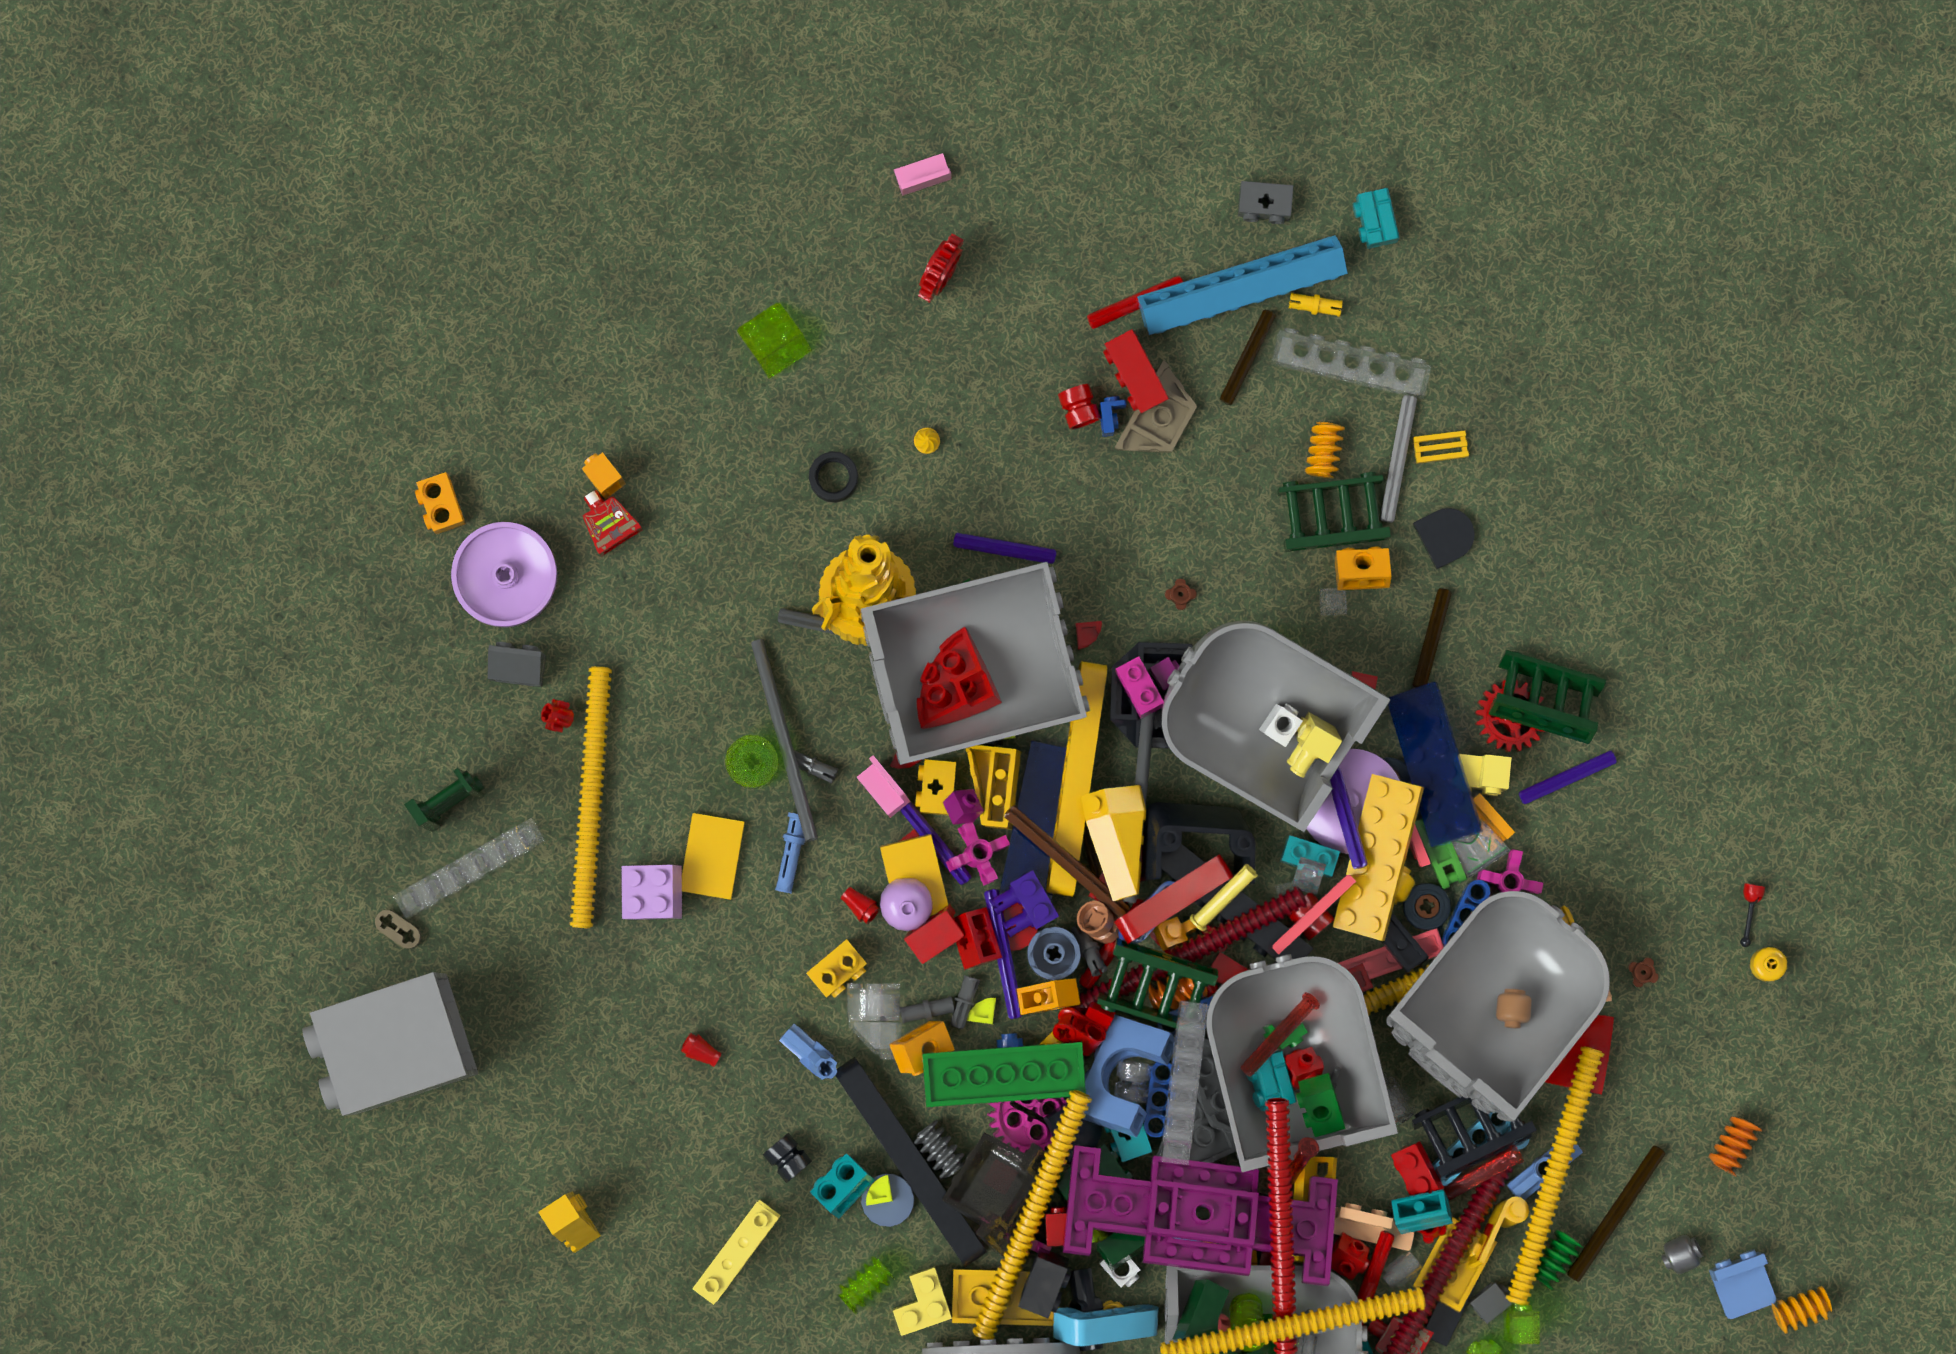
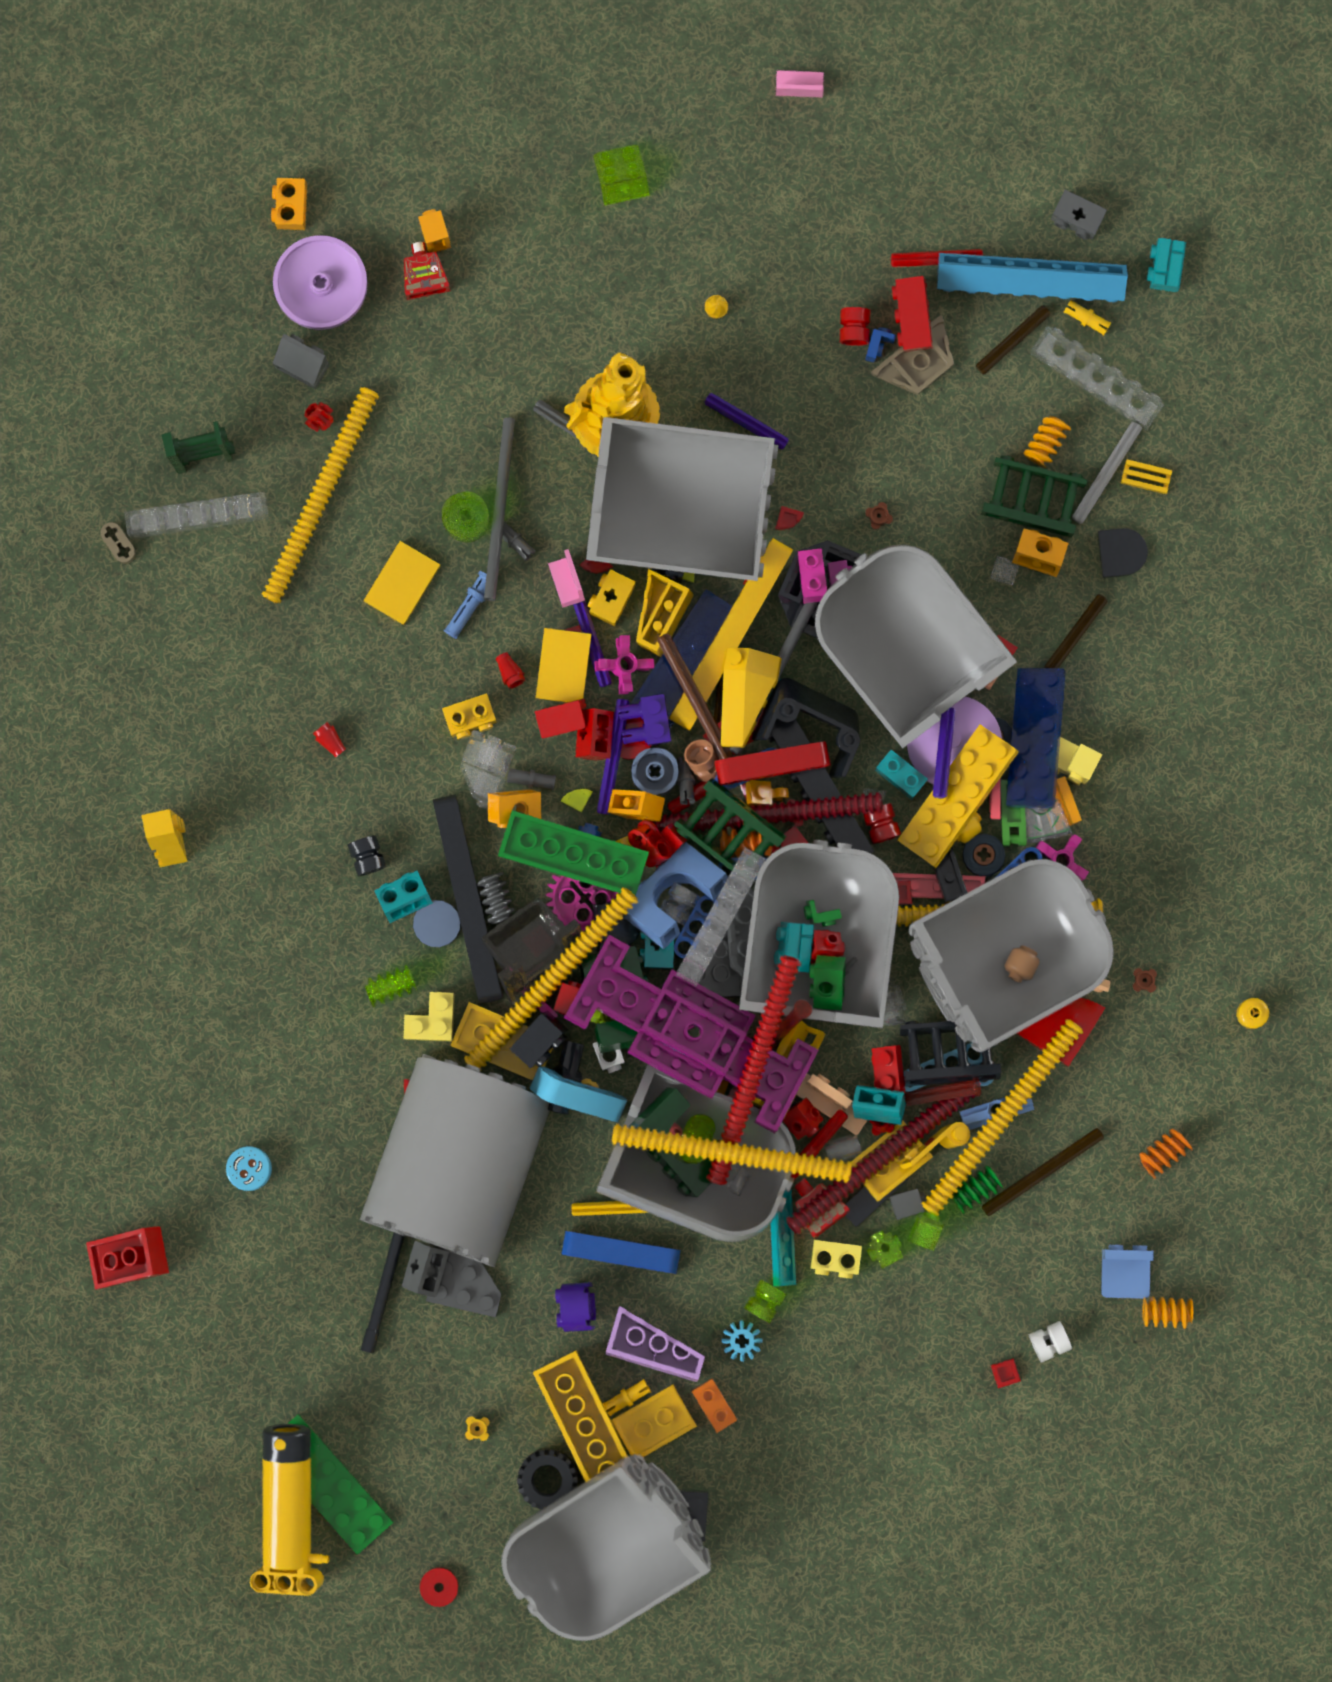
camera: 25 degrees right, 0 degrees up
(390, 1044) = (74, 632): light grey brick -> none
(652, 892) = (340, 592): lavender brick -> none
(736, 1252) = (294, 915): light yellow fence -> none
(811, 1053) = (419, 776): medium blue piece -> none
(829, 457) = (626, 289): black tyre -> none
(879, 1191) = (432, 913): neon yellow tile -> none
(906, 904) = (548, 683): lavender cylinder -> none
(940, 267) = (783, 165): red gear -> none
(955, 683) = (659, 514): red brick -> none
(963, 806) = (626, 620): magenta plate -> none
(964, 1001) = (565, 784): dark grey axle -> none
(1223, 897) = (814, 779): light yellow pin -> none
(1270, 728) = (908, 652): white brick -> none
(1280, 1034) = (817, 909): clear red axle -> none
(1307, 919) = (884, 820): coral tile -> none
(1308, 875) = (893, 788): clear bracket -> none
(1315, 740) = (942, 676): light yellow brick -> none
(1489, 721) = (1120, 702): red gear -> none
(1542, 717) = (1140, 731): dark green fence -> none
(1567, 777) = (1145, 793): dark purple axle -> none
(1682, 1254) = (1084, 1227): flat silver head -> none
(1752, 894) = (1263, 951): hinge -> none

